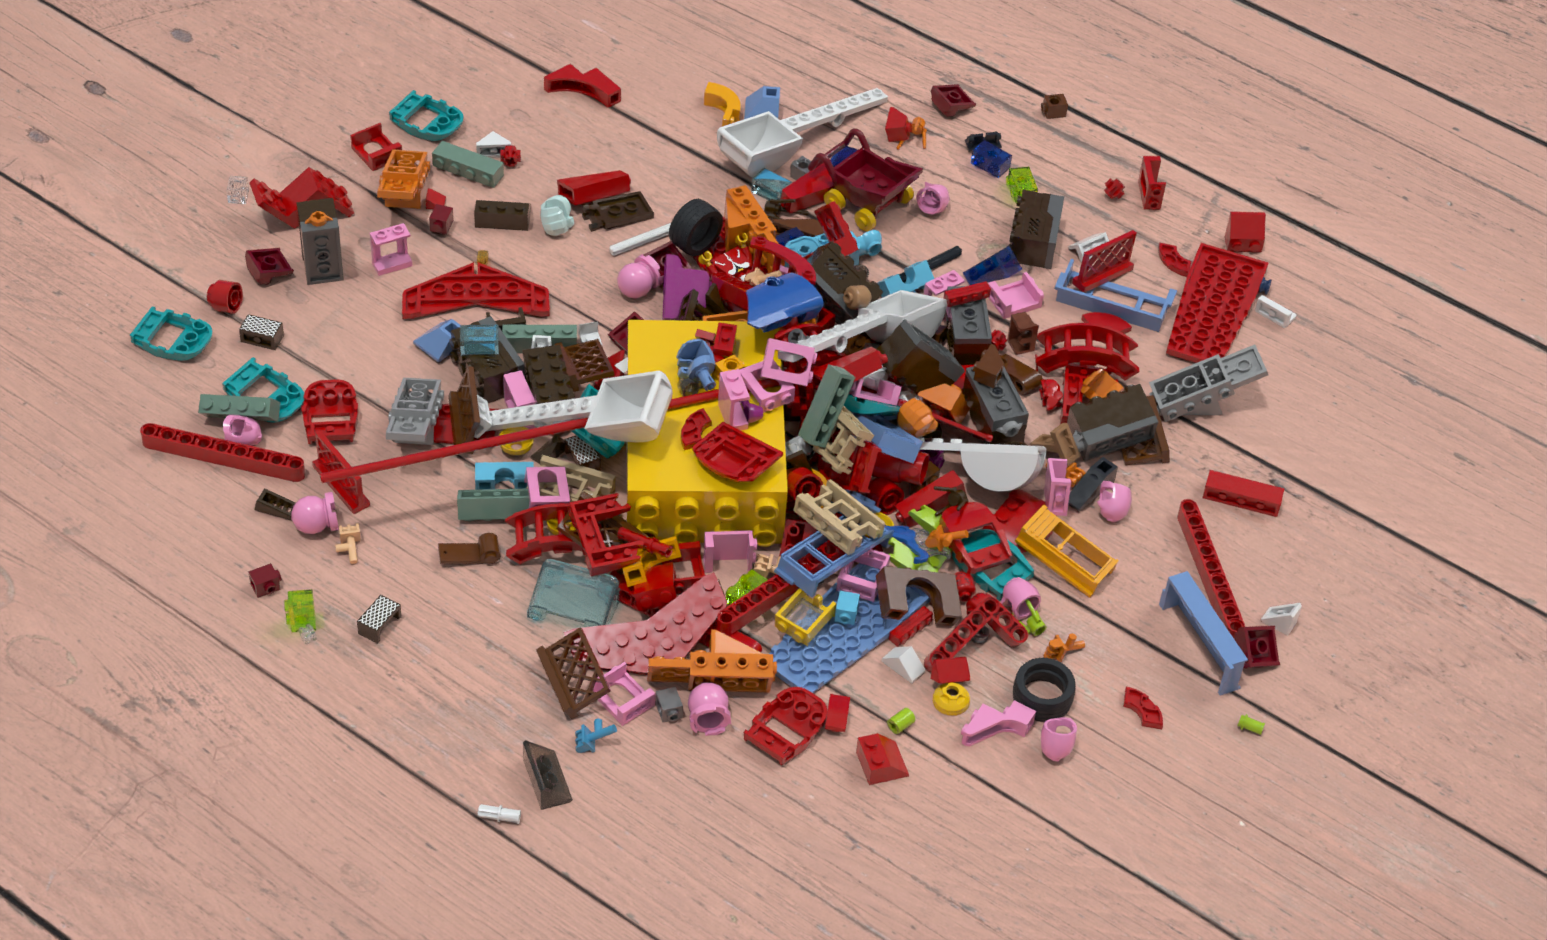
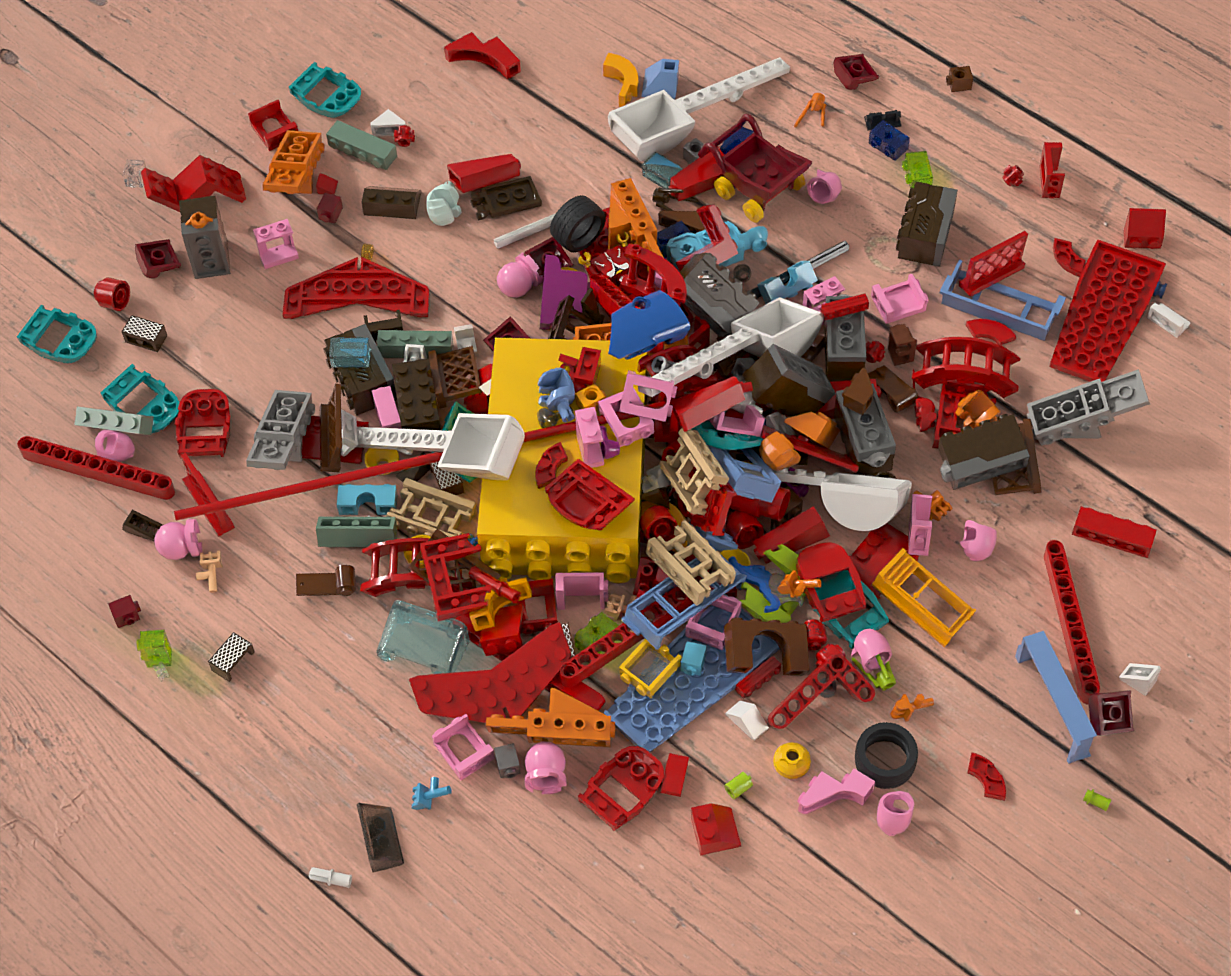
camera: 10 degrees right, 10 degrees up
(436, 340) = (312, 344): medium blue slope -> none
(546, 474) = (400, 502): bright pink panel -> none
(560, 683) = (401, 733): reddish brown fence -> none
(758, 277) = (634, 289): light nougat arm -> none
(826, 406) = (683, 444): sand green brick -> none
(857, 297) = (731, 311): medium nougat head -> none
(897, 126) = (796, 102): red slope -> none
(950, 670) = (792, 732): red slope -> none
(956, 497) = (815, 537): dark brown plant -> none
(994, 268) = (880, 267): clear blue slope -> none
(1059, 442) = (926, 472): medium nougat bracket -> none
(1089, 243) = (982, 240): white panel -> none
(1089, 486) = (953, 524): black slope -> none

